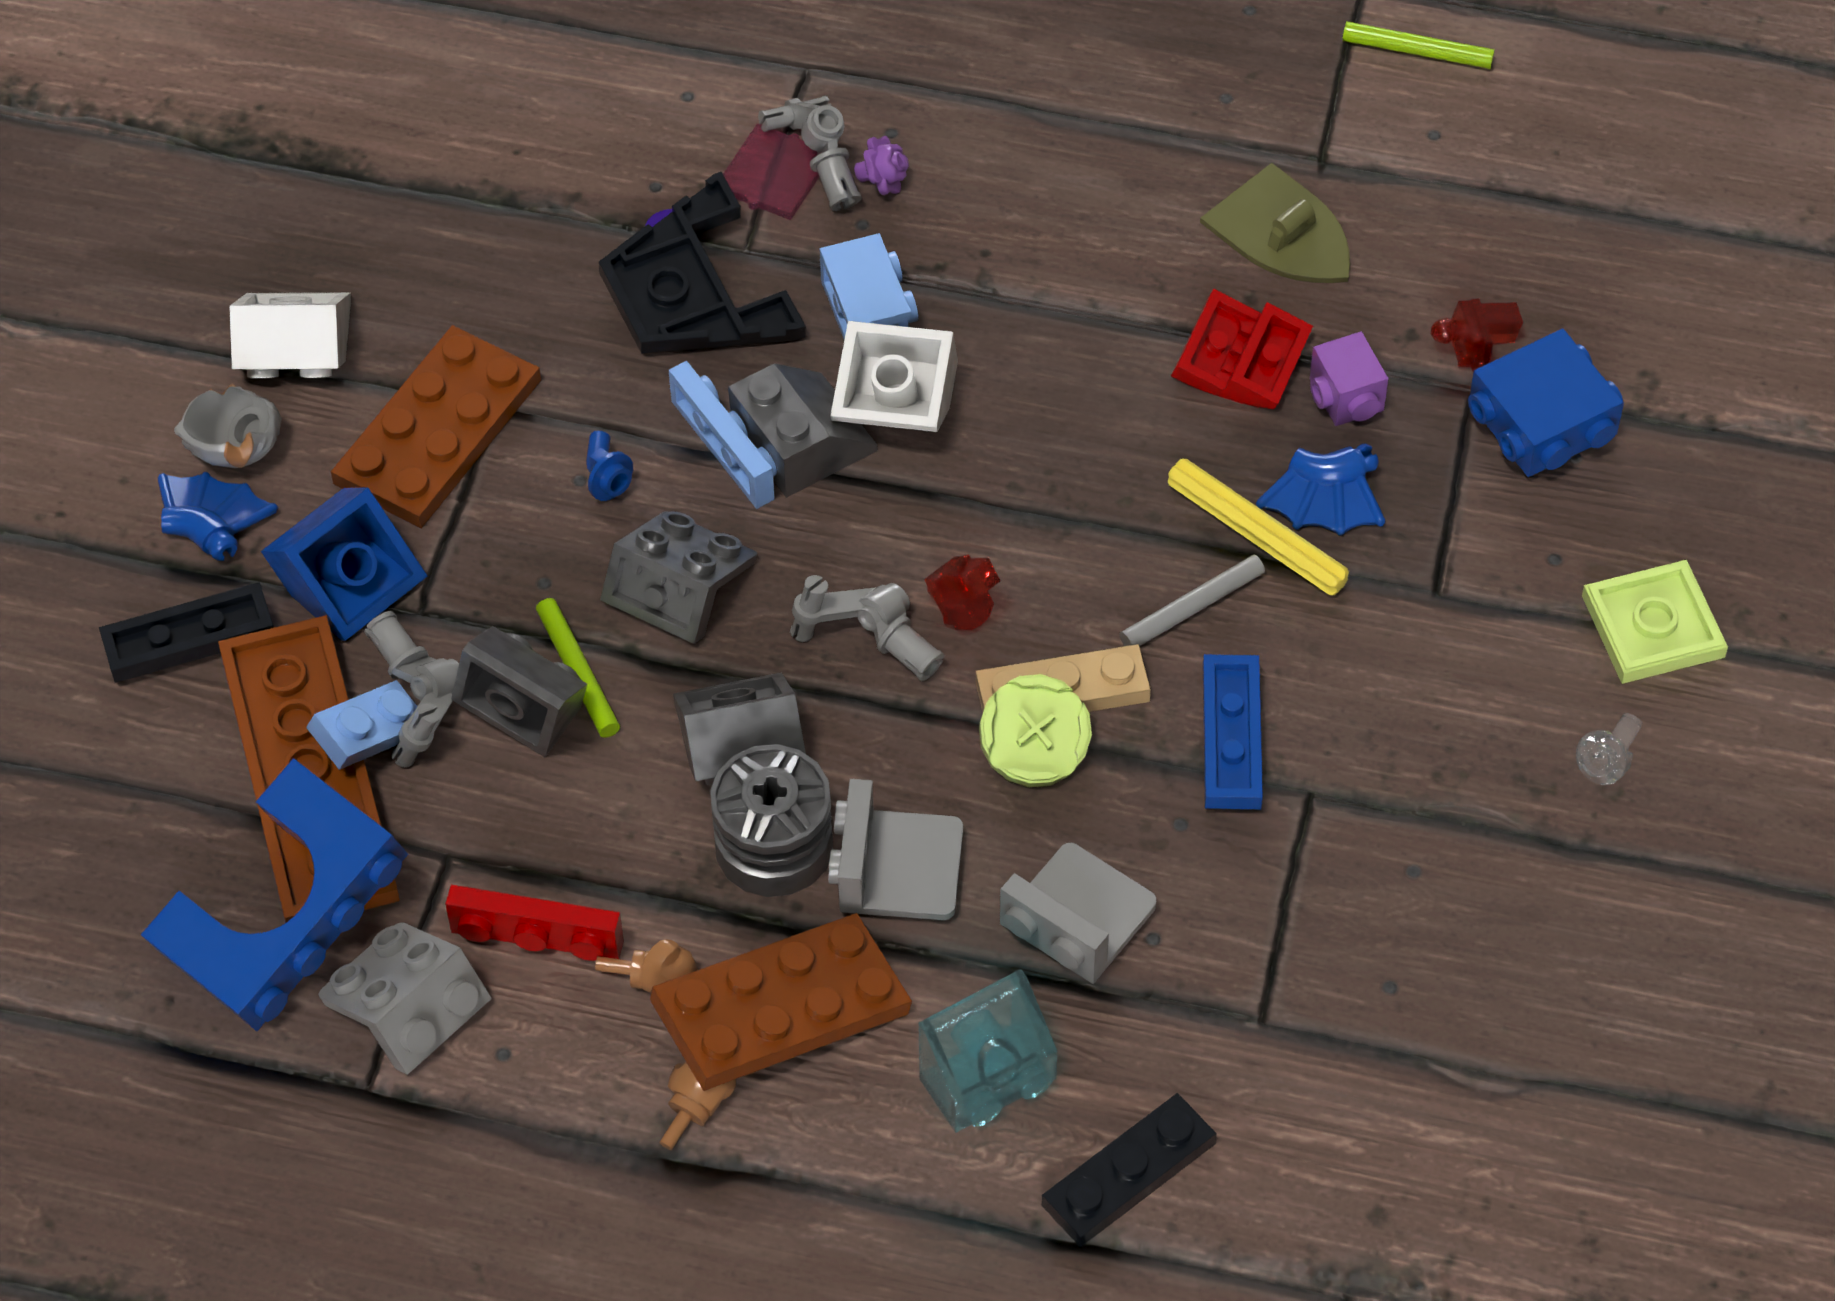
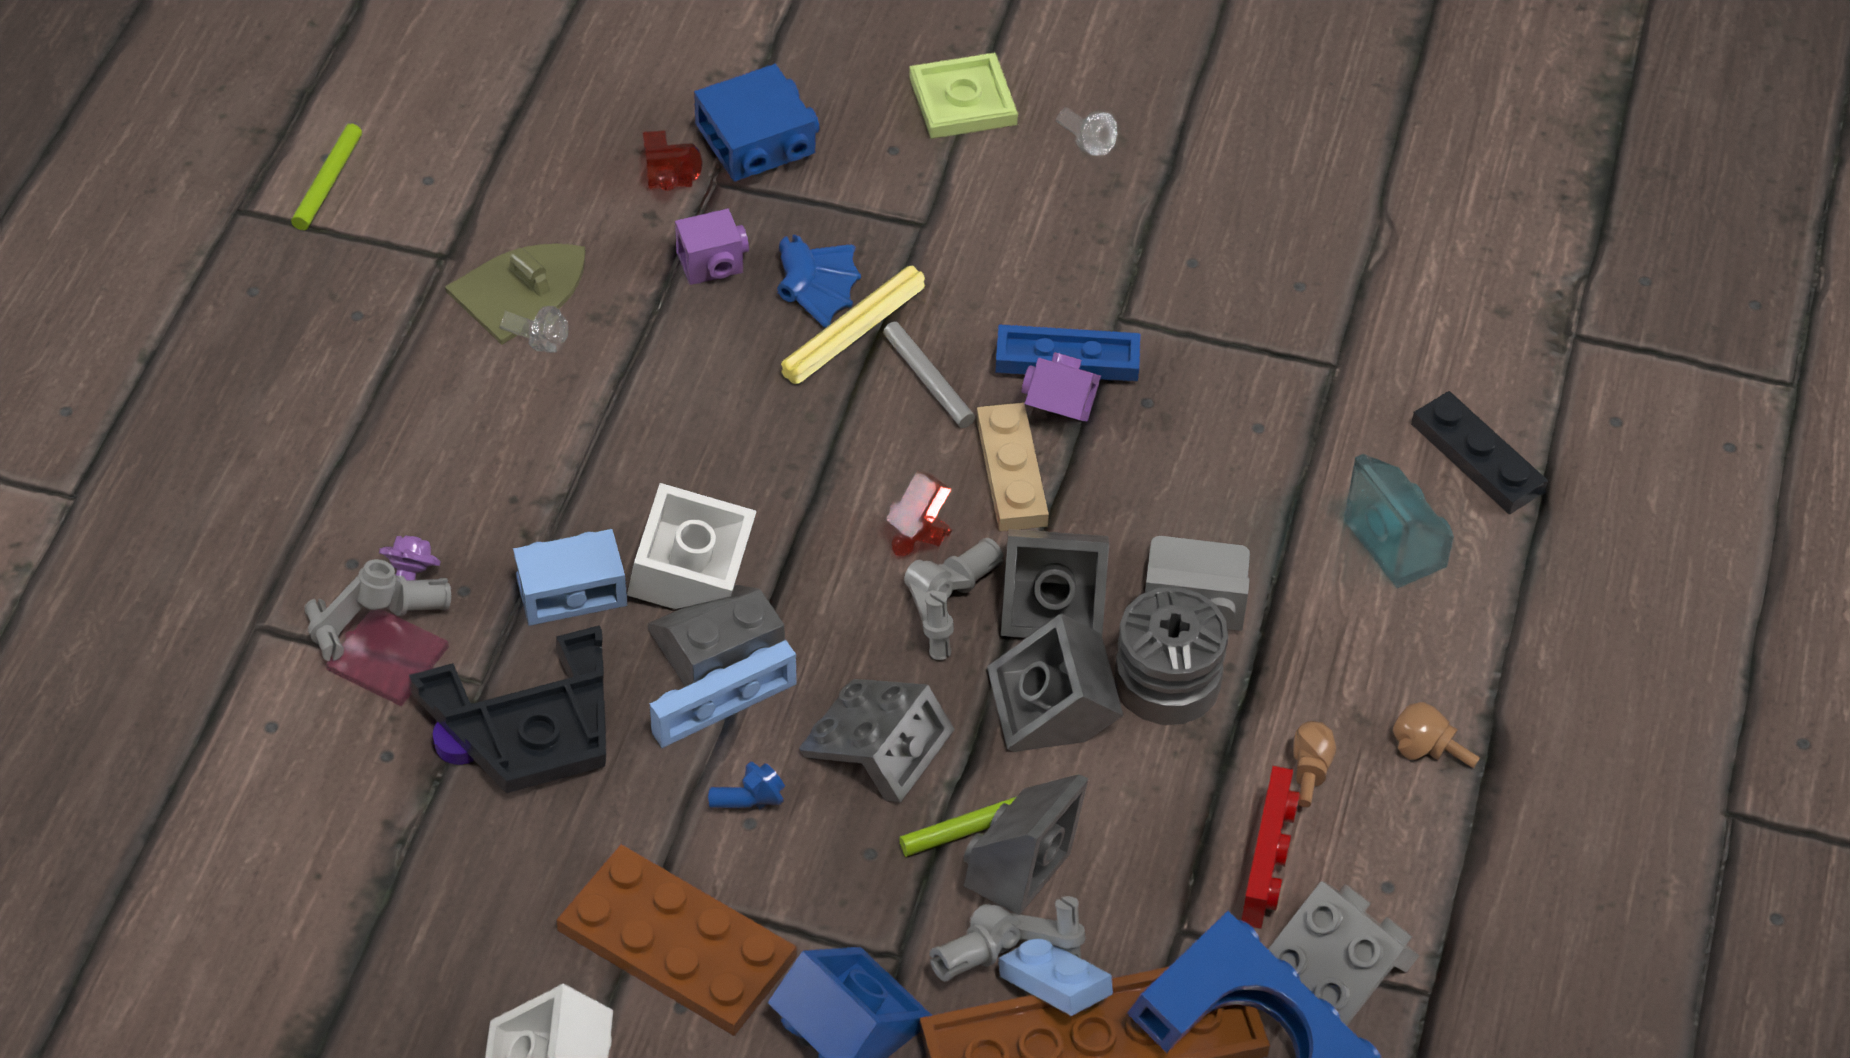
camera: 90 degrees left, 5 degrees down
(780, 1001) = (1346, 664): dark orange plate -> none
(885, 719) = (1053, 577): none -> flat silver slope
(1035, 730) = (1067, 478): yellowish green tile -> none
(1076, 910) = (1246, 463): light grey bracket -> none
(1159, 717) = (1061, 387): none -> medium lavender brick
(1210, 248) = (545, 333): none -> clear plate
(1242, 351) = (661, 321): red slope -> none

